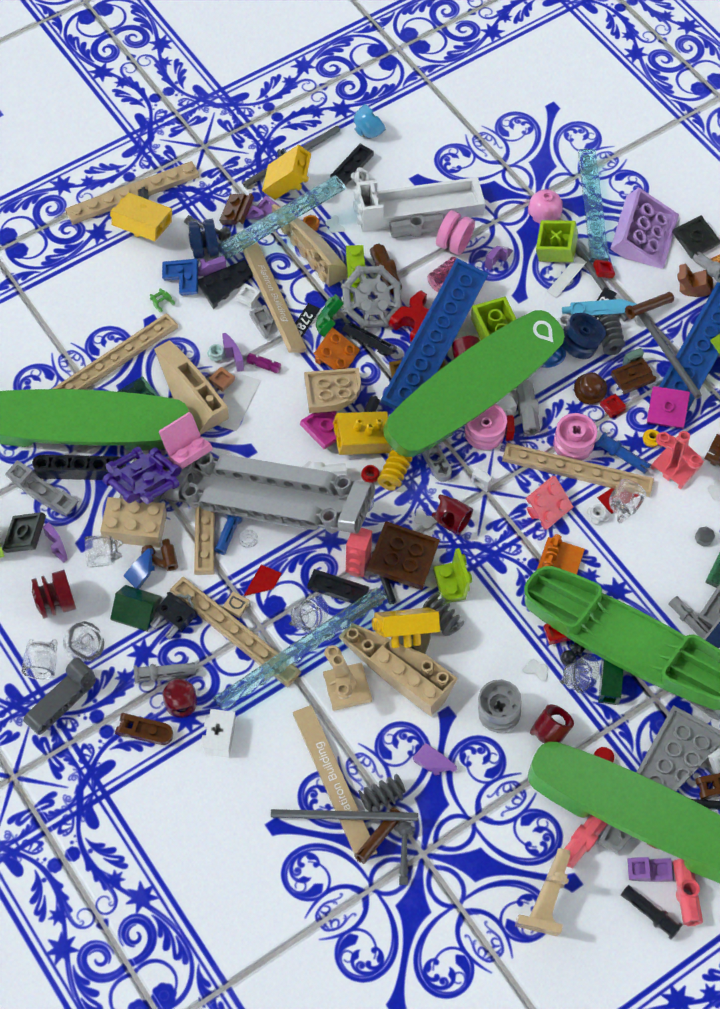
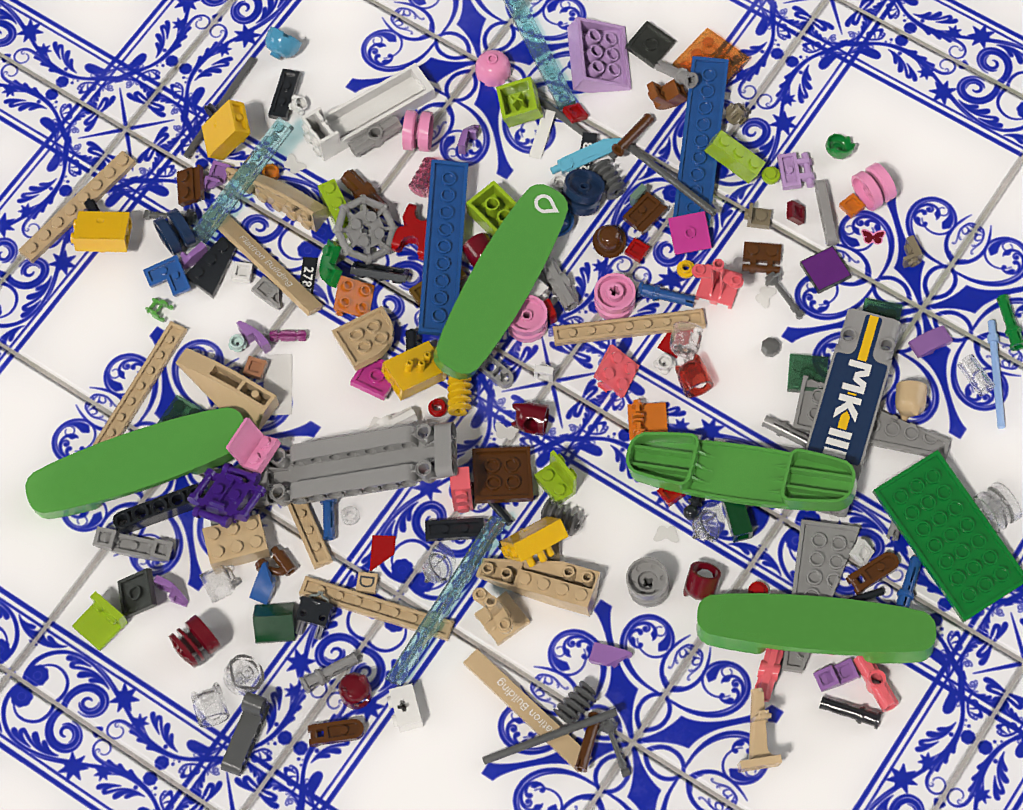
camera: 15 degrees left, 5 degrees up
(621, 531) = (692, 374): none -> clear red piece

